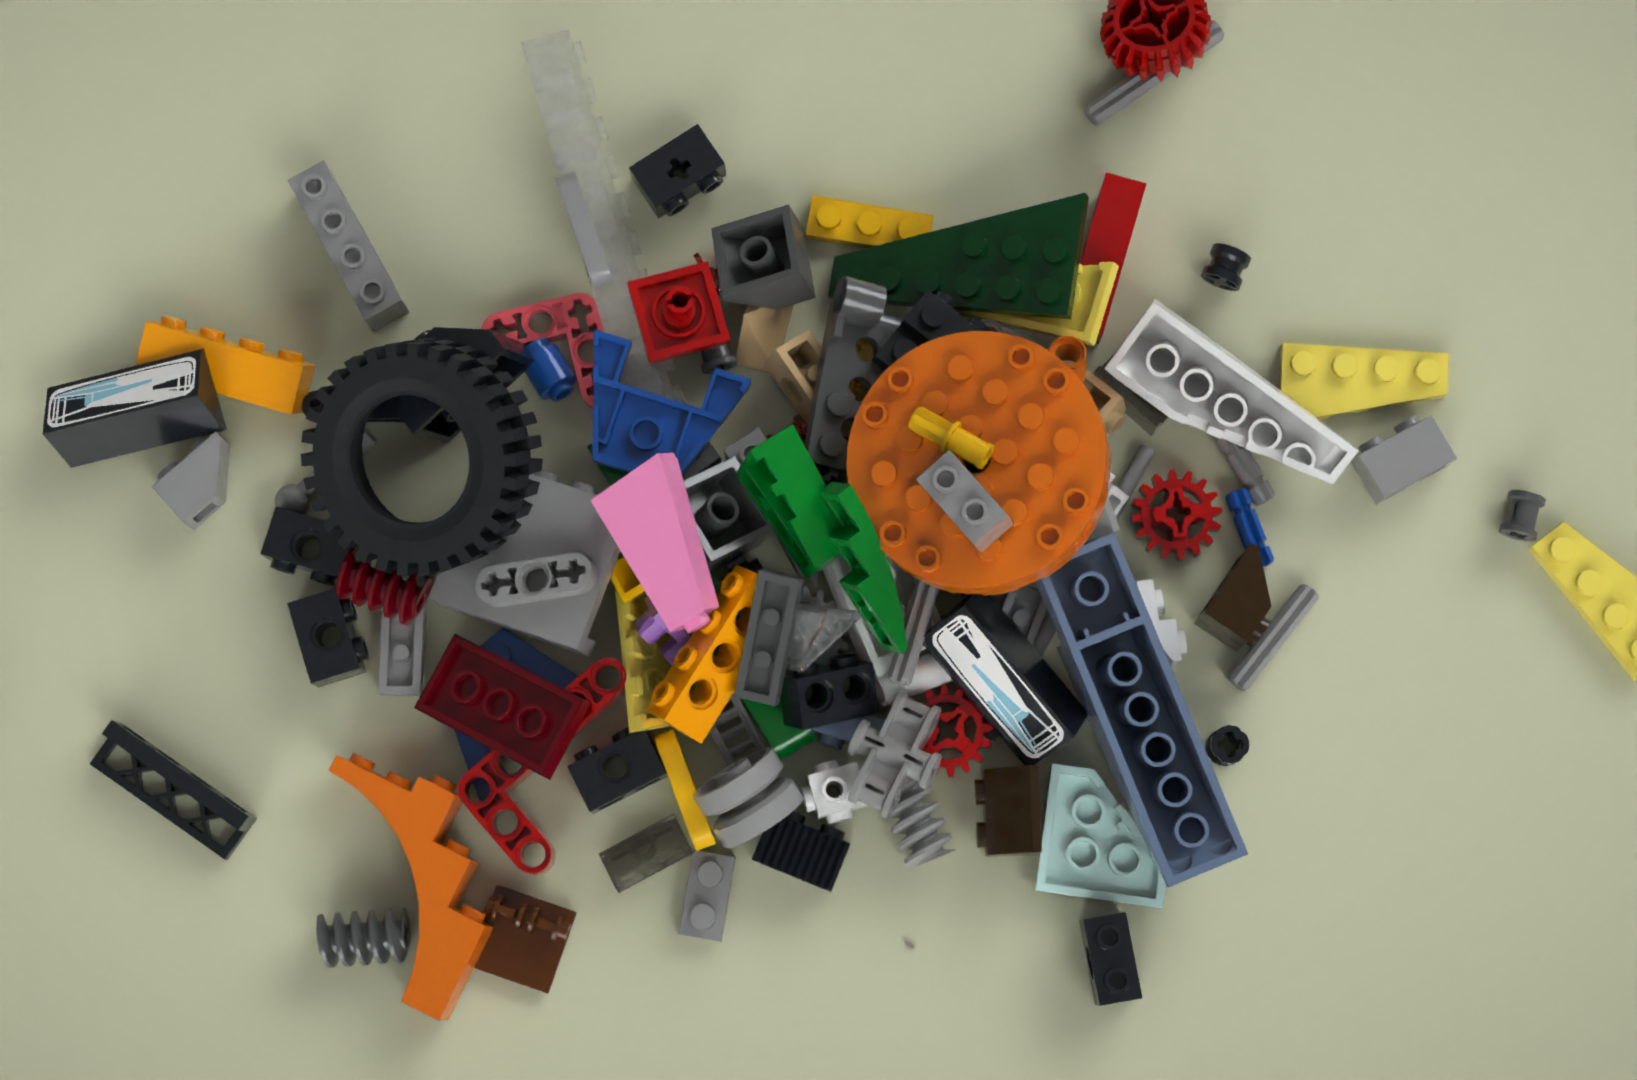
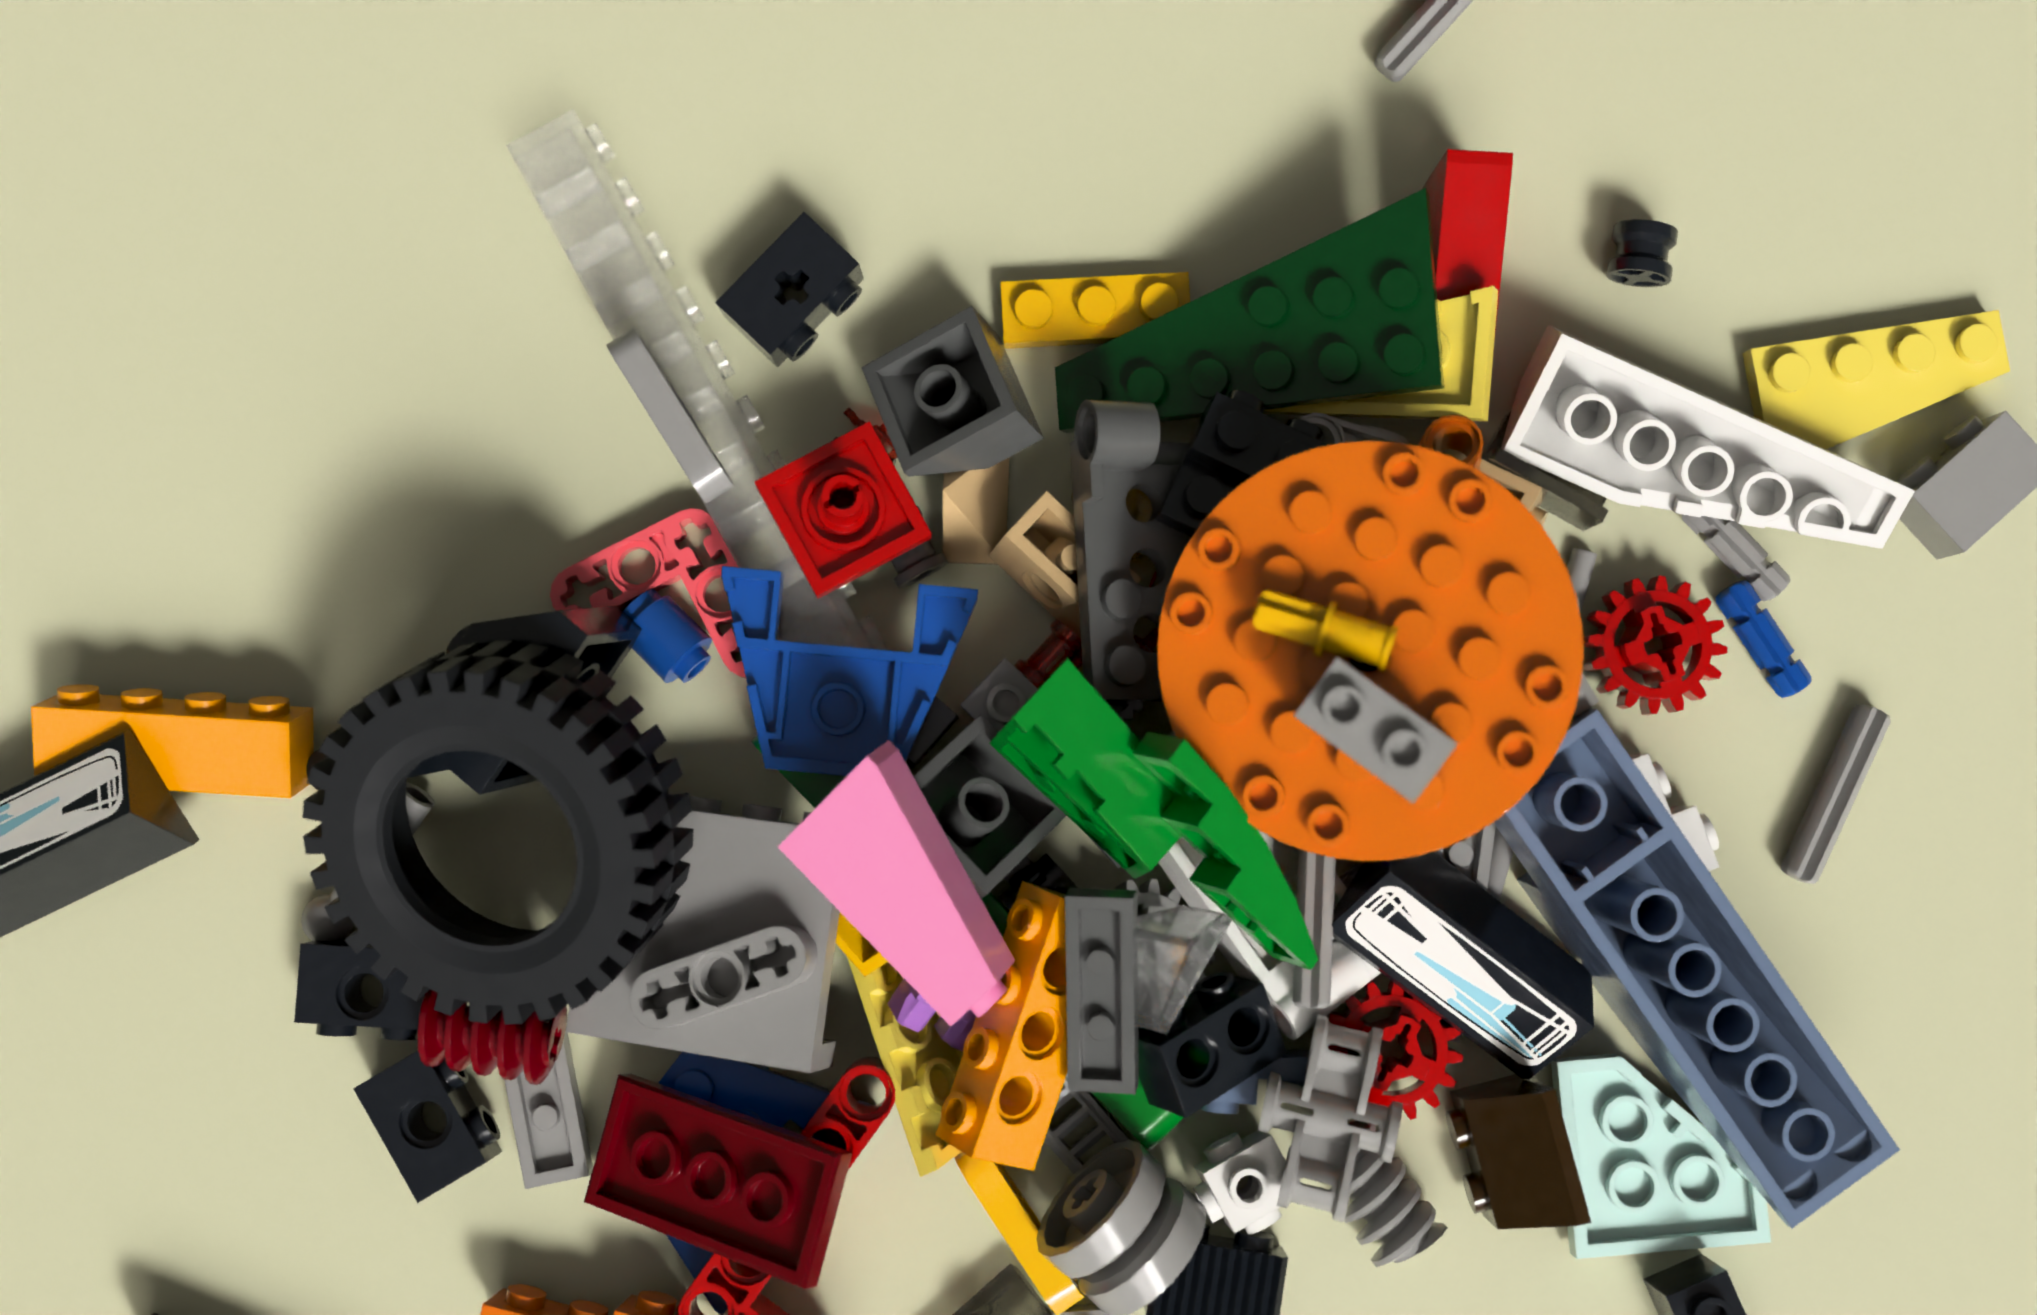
camera: 15 degrees left, 5 degrees up
(198, 482) = (177, 928): light grey slope -> none
(348, 246) = (318, 515): light grey brick -> none
(600, 790) = (894, 1255): black brick -> none
(1234, 735) = (1823, 987): black bush -> none
(1239, 603) = (1785, 756): dark brown slope -> none

